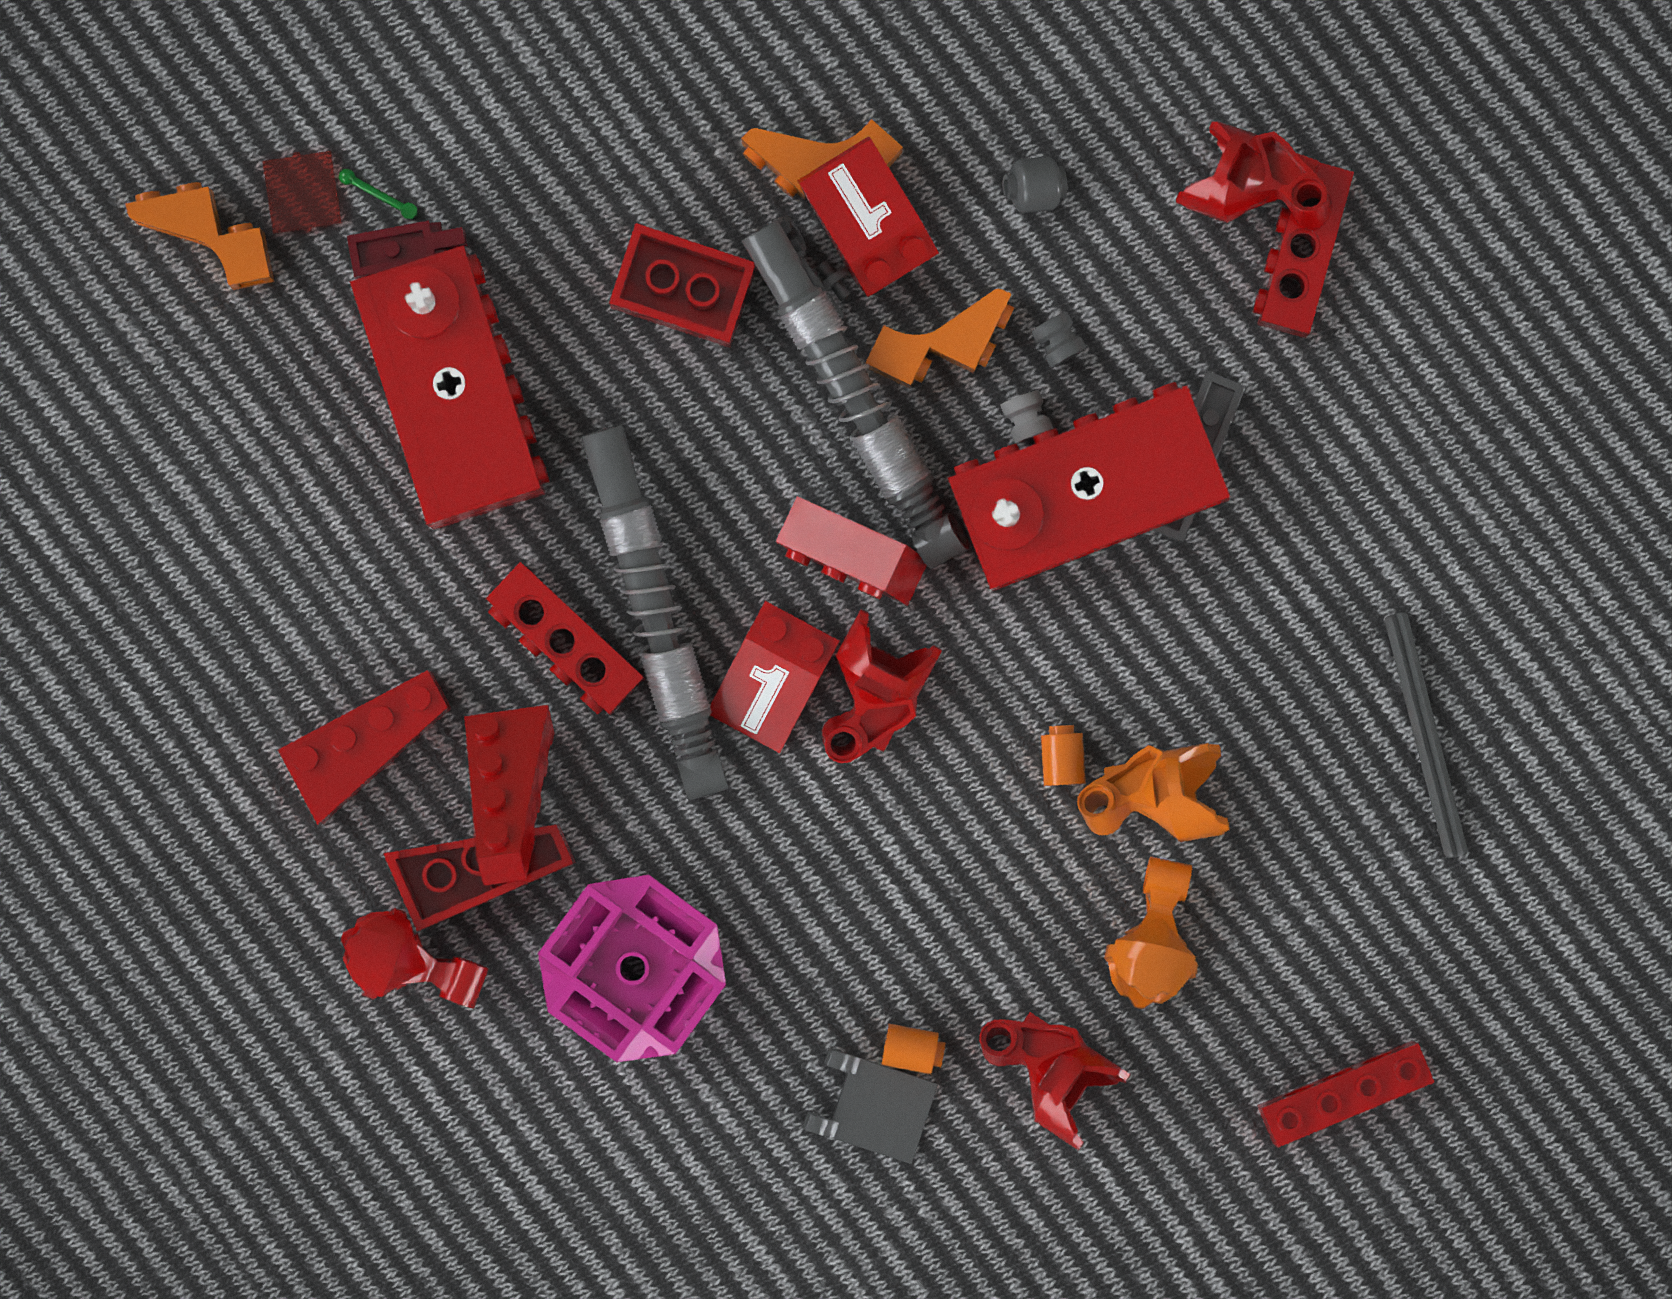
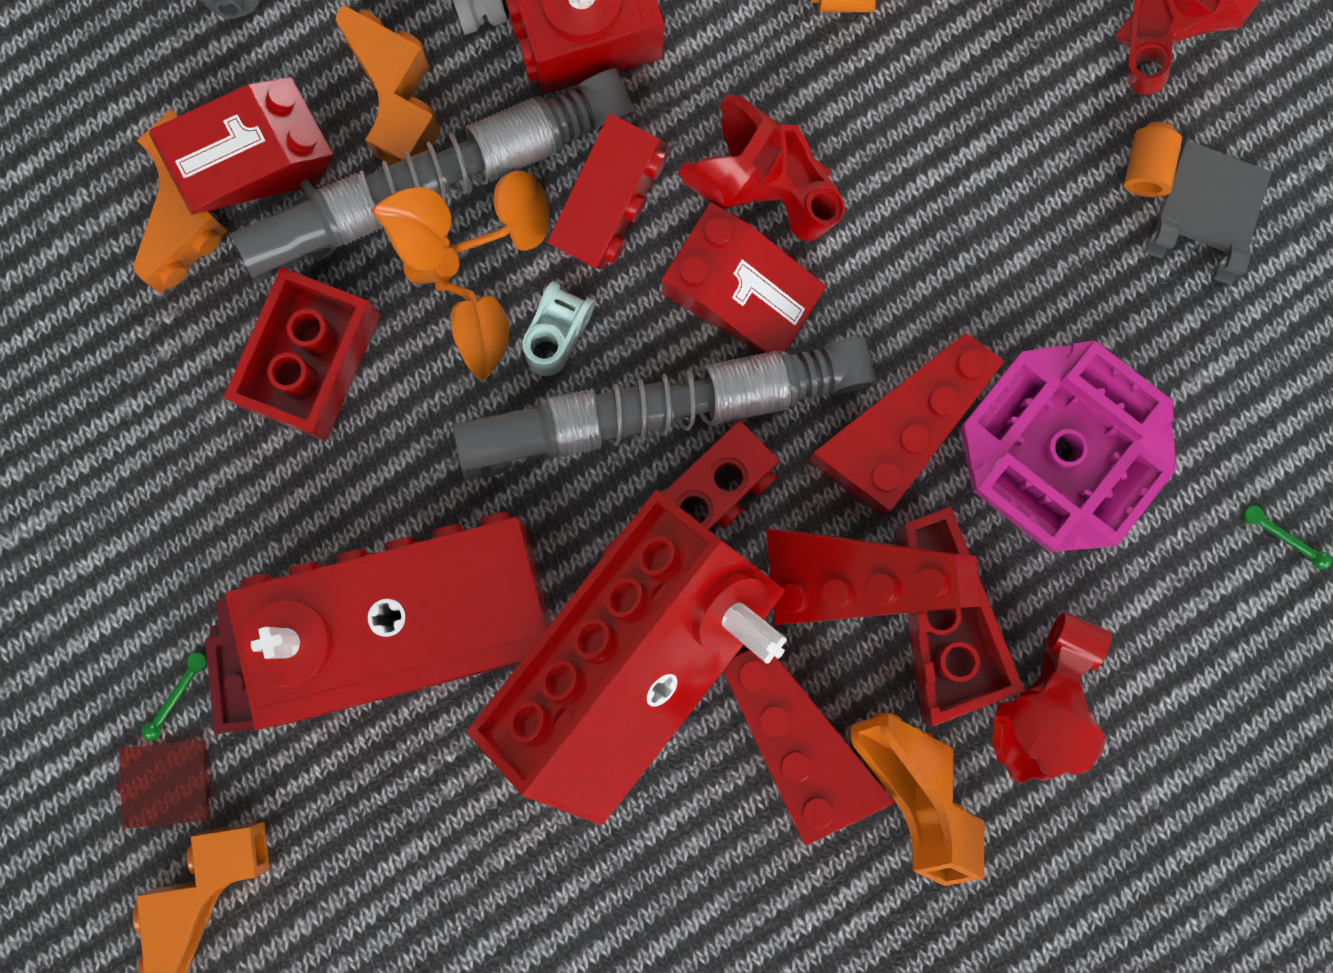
camera: 85 degrees left, 5 degrees down
(338, 847) = (920, 781): none -> orange arch
(424, 591) = (626, 662): none -> red piece
(588, 1149) = (1255, 515): none -> green hinge
(641, 822) = (900, 433): none -> red wedge
(726, 510) = (558, 320): none -> light aqua piece
(777, 390) = (417, 229): none -> orange plant

